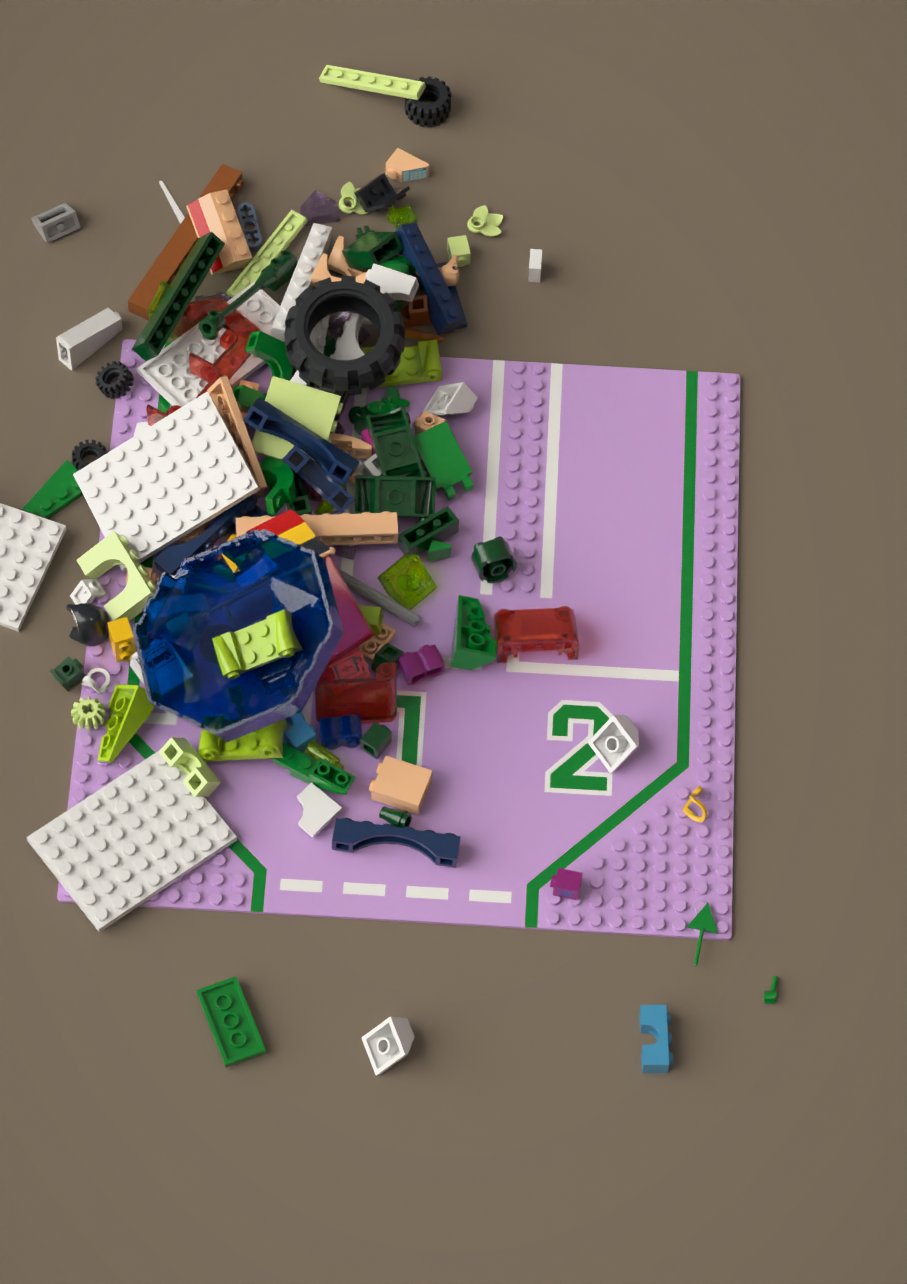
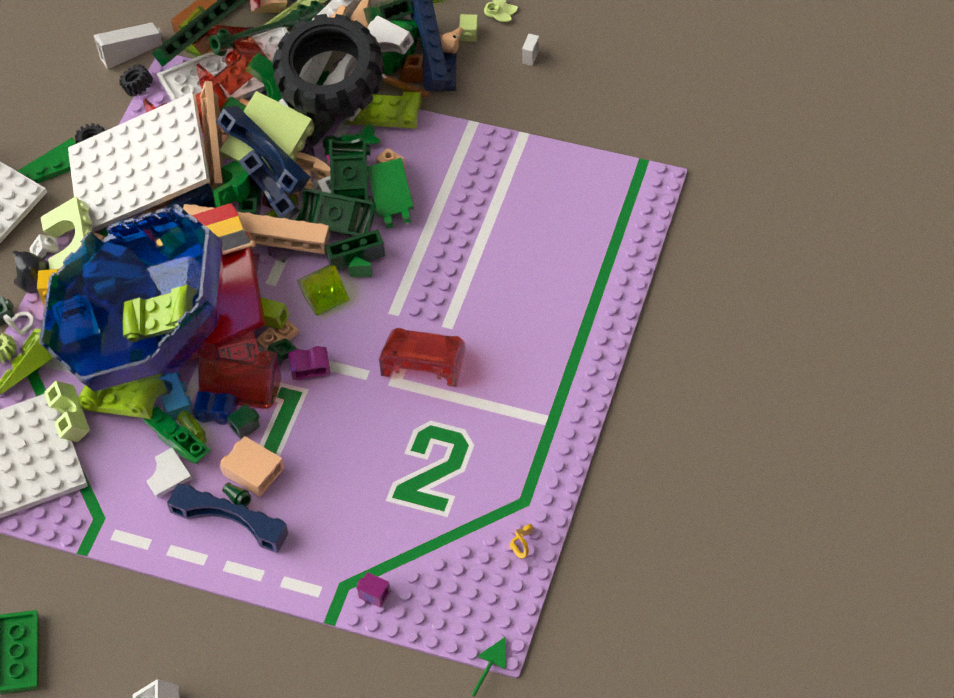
camera: 20 degrees right, 5 degrees down
(380, 599) = (292, 298): light grey axle -> none
(451, 400) = (417, 145): white slope -> none
(471, 637) = (363, 346): green wedge -> none
(493, 560) = (405, 284): dark green brick -> none
(615, 741) = (463, 465): white slope -> none

